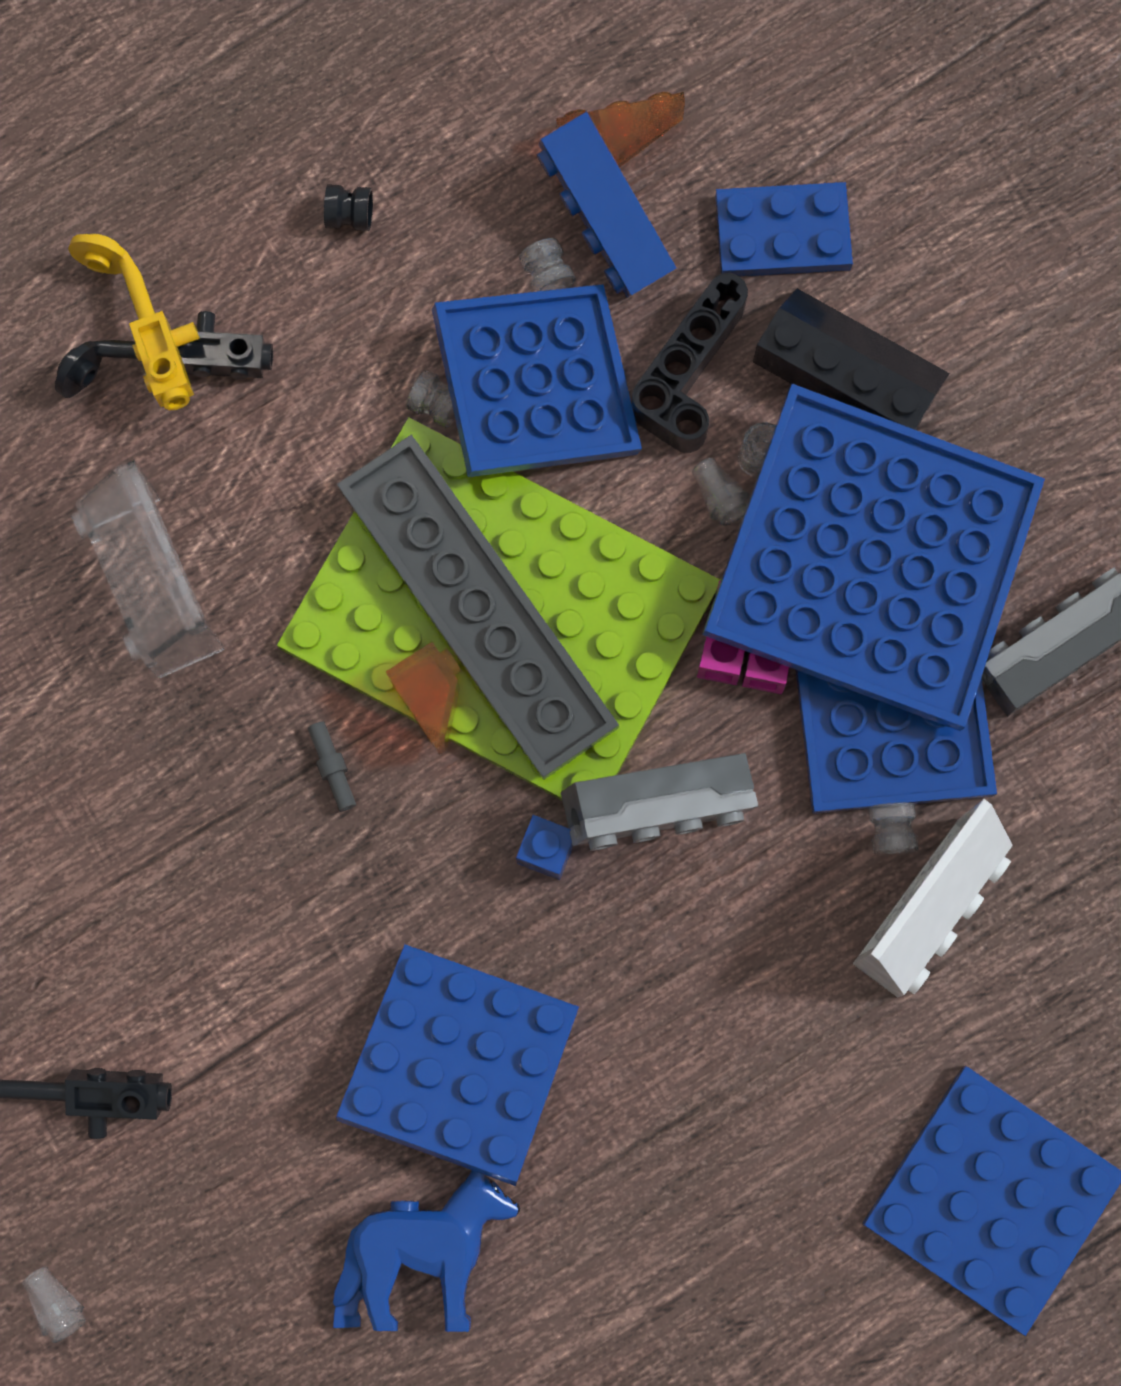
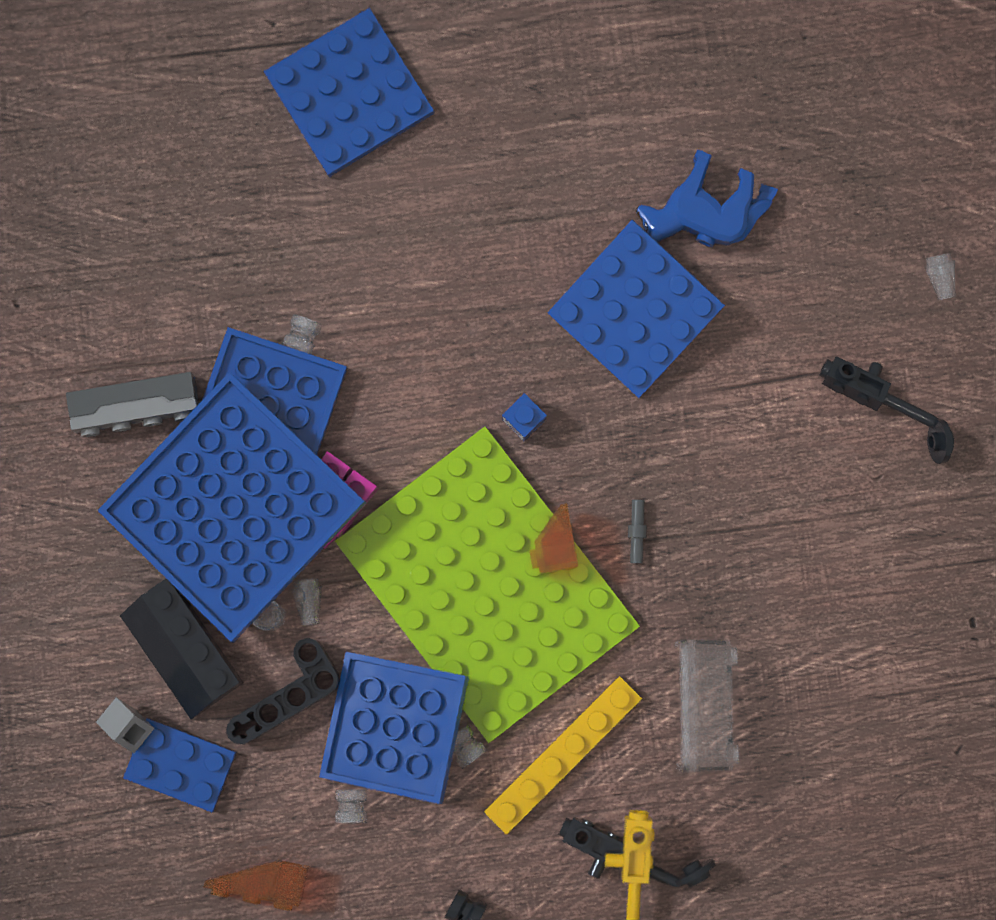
camera: 155 degrees left, 5 degrees up
(308, 447) = (562, 755): none -> yellow plate
(478, 607) = (500, 590): dark grey plate -> none
(605, 204) = (294, 826): blue brick -> none
(659, 800) = (441, 411): piece -> none
(874, 238) = (125, 725): none -> light grey brick
(936, 901) = (300, 277): white slope -> none

